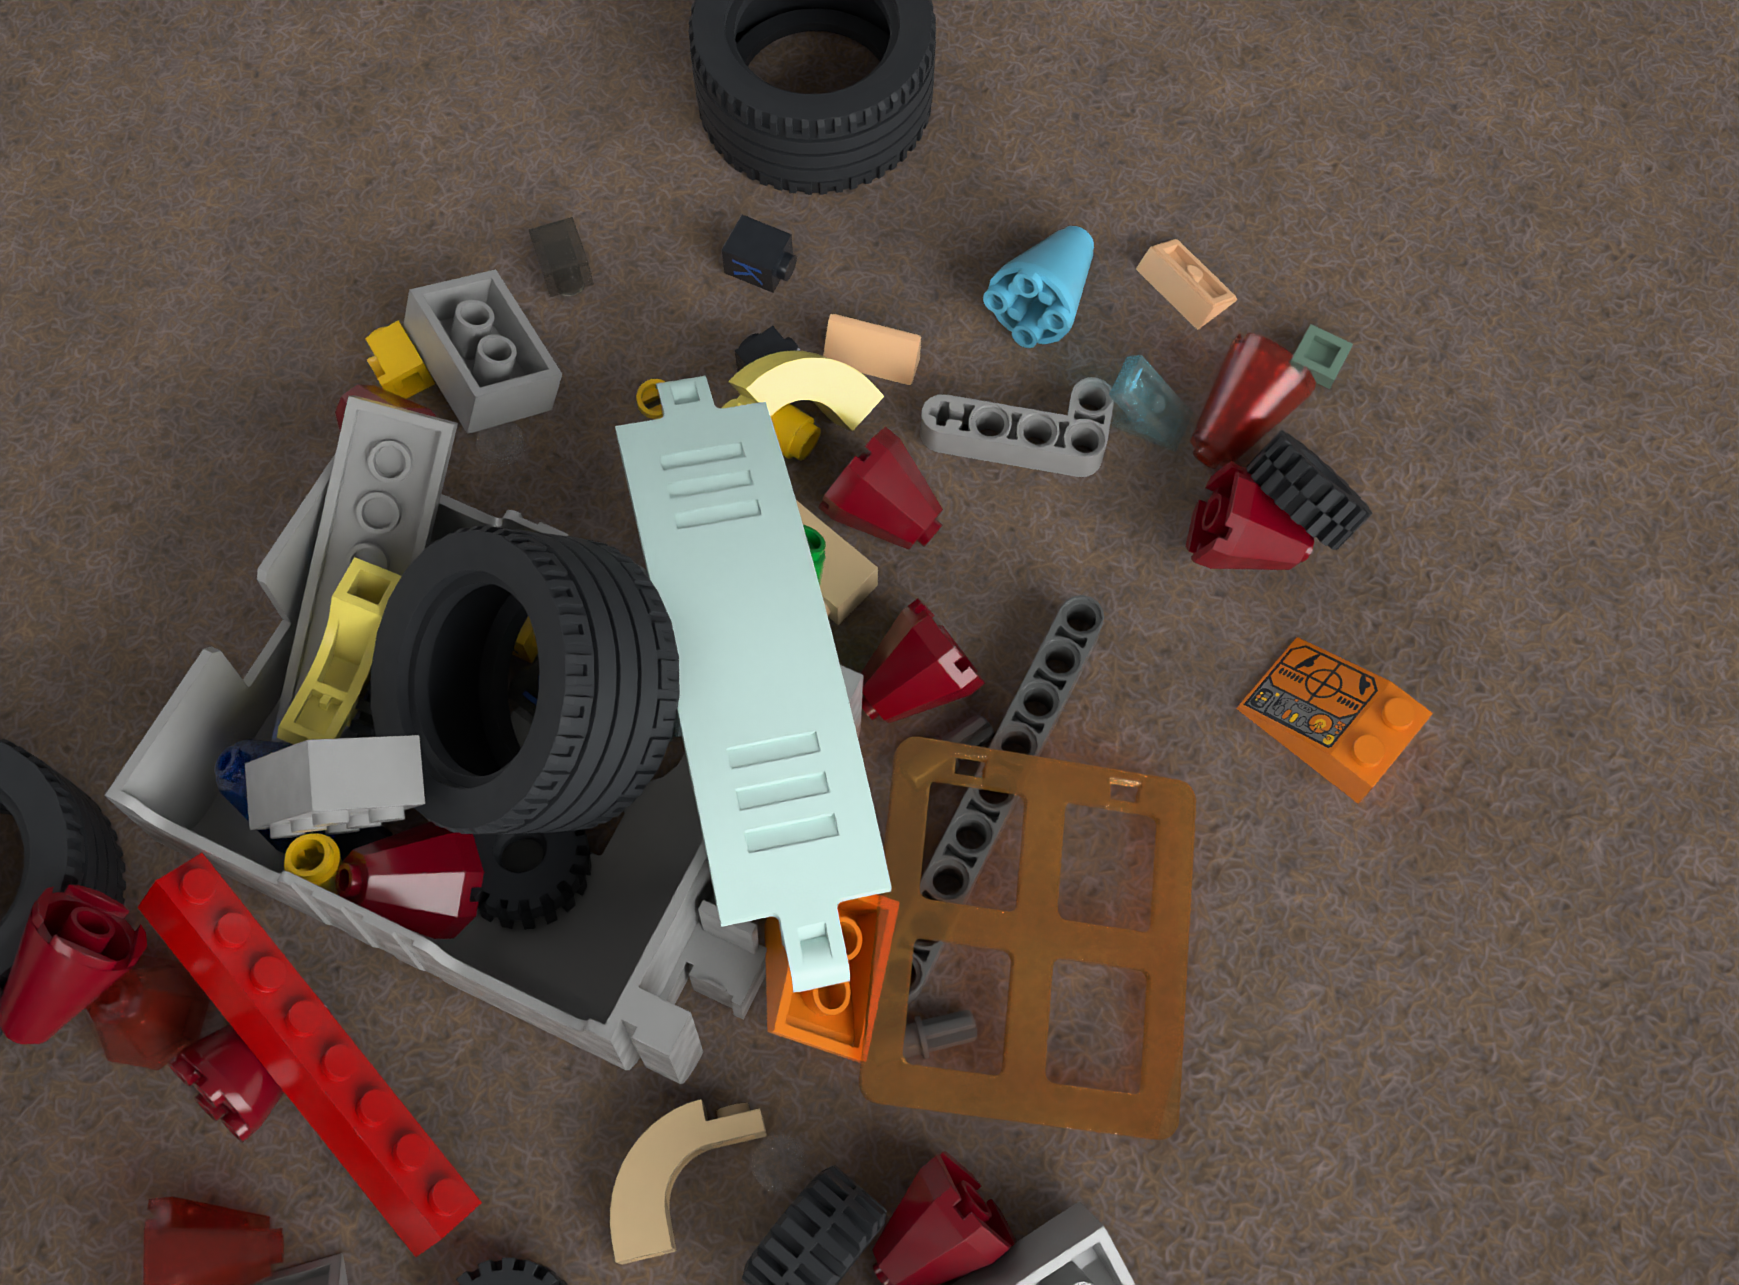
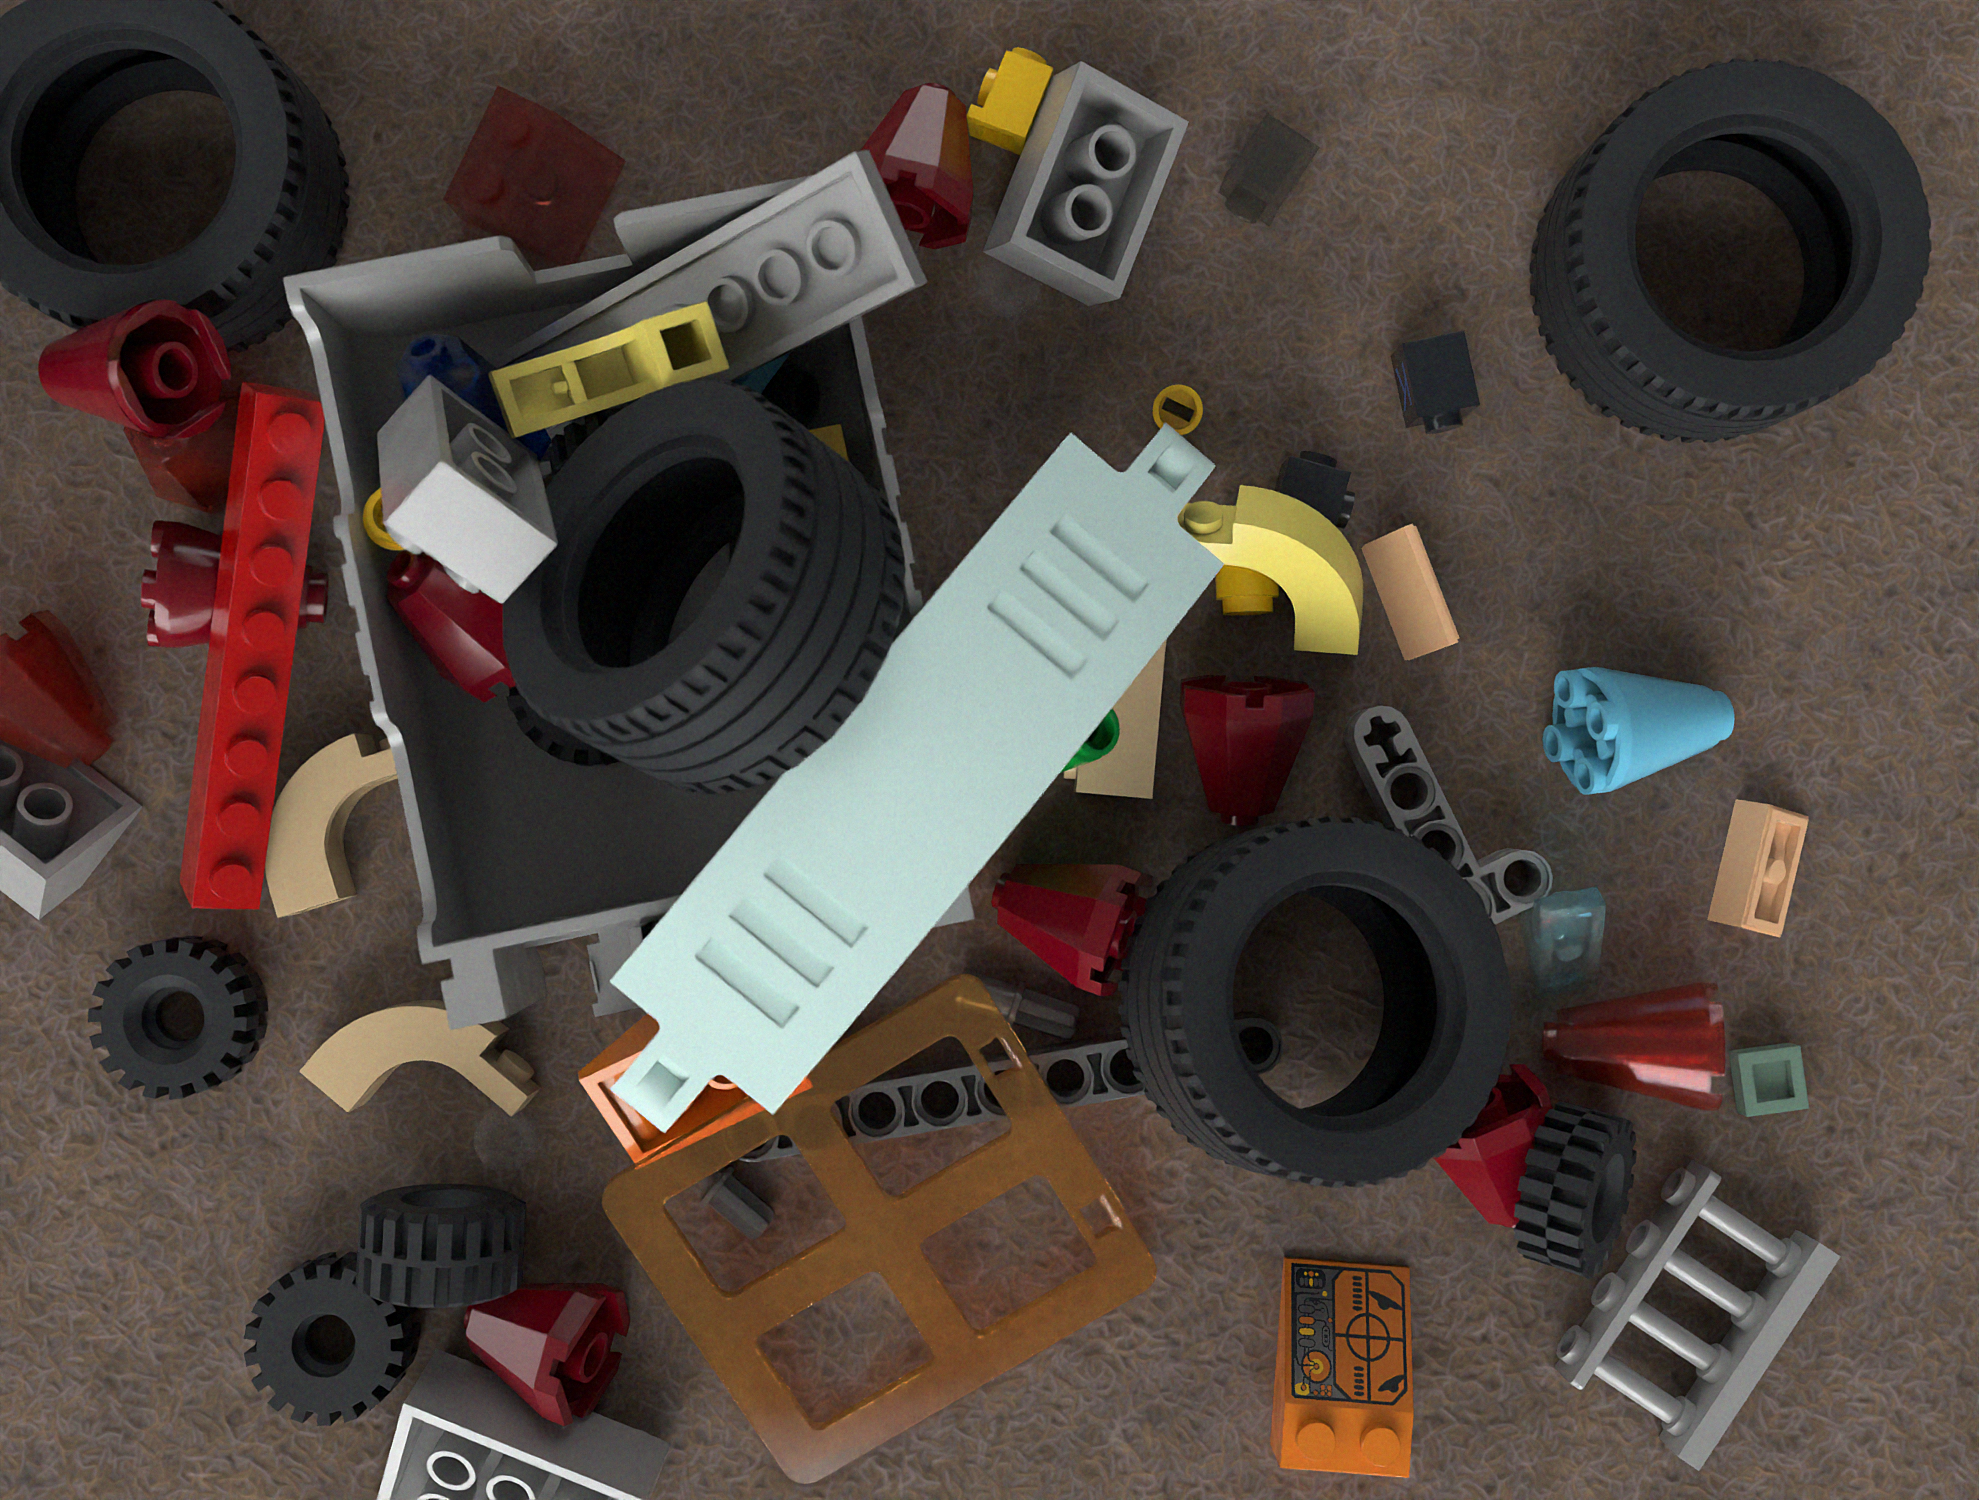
camera: 60 degrees right, 20 degrees up
(165, 646) = (533, 179): none -> clear red slope
(444, 1109) = (309, 820): none -> tan arch
(1089, 467) = (1441, 992): none -> black tyre
(1468, 454) = (1724, 1370): none -> light grey fence

